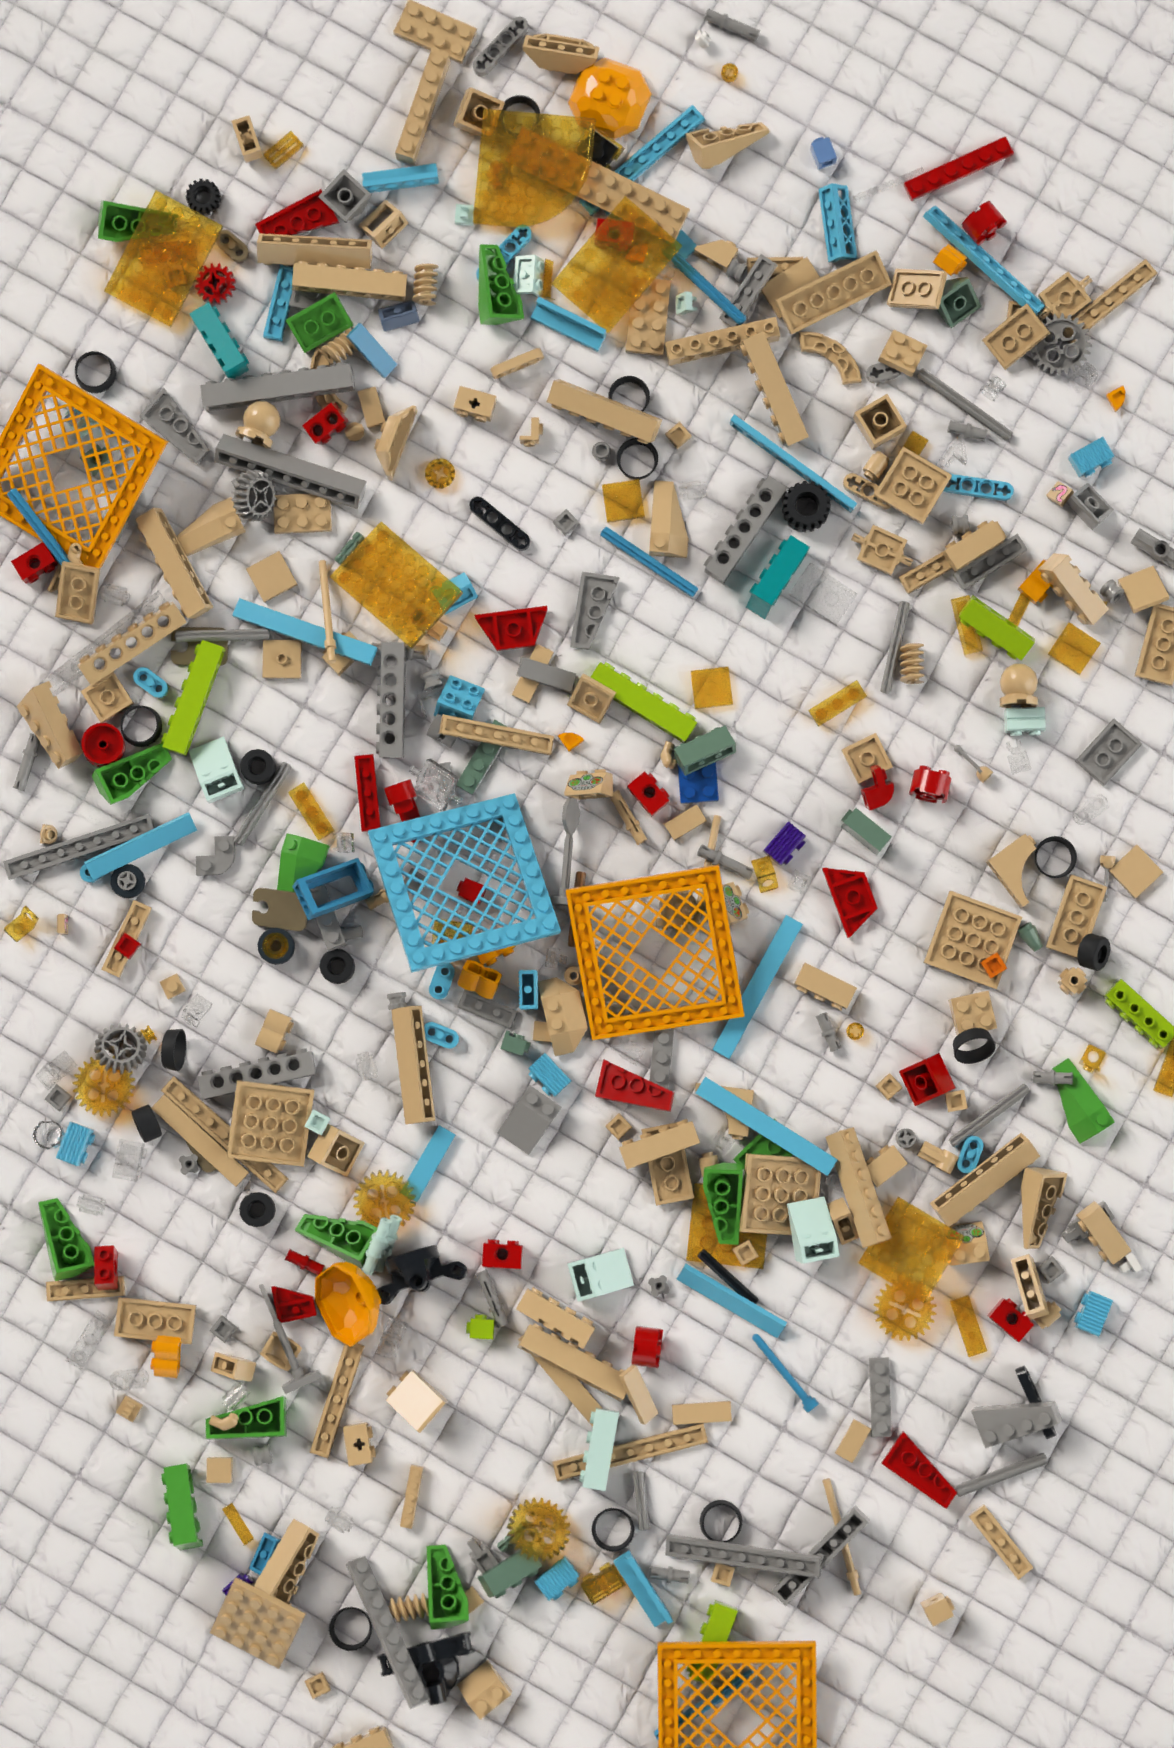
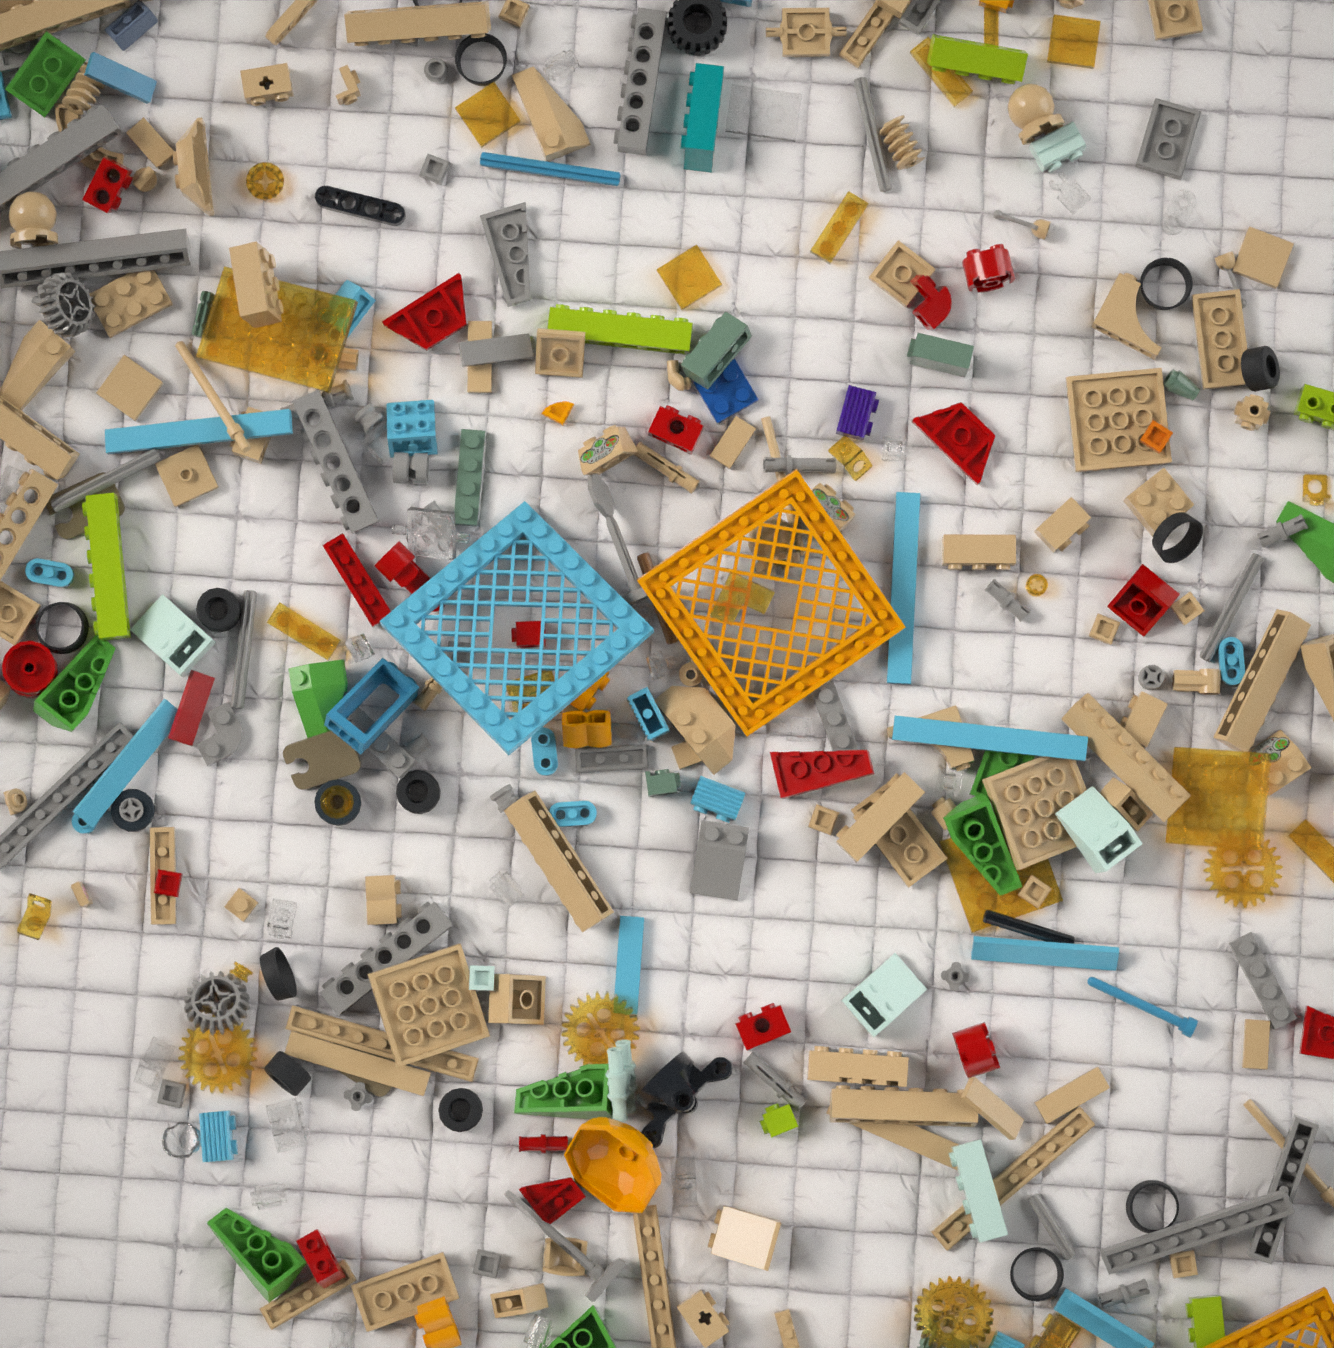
camera: 30 degrees left, 0 degrees up
(204, 828) = (191, 707): none -> red tile
(395, 546) = (256, 284): none -> tan brick
(496, 734) = (472, 444): tan tile -> none
(633, 933) = (739, 591): none -> clear yellow plate
(894, 997) = (1063, 525): none -> tan brick

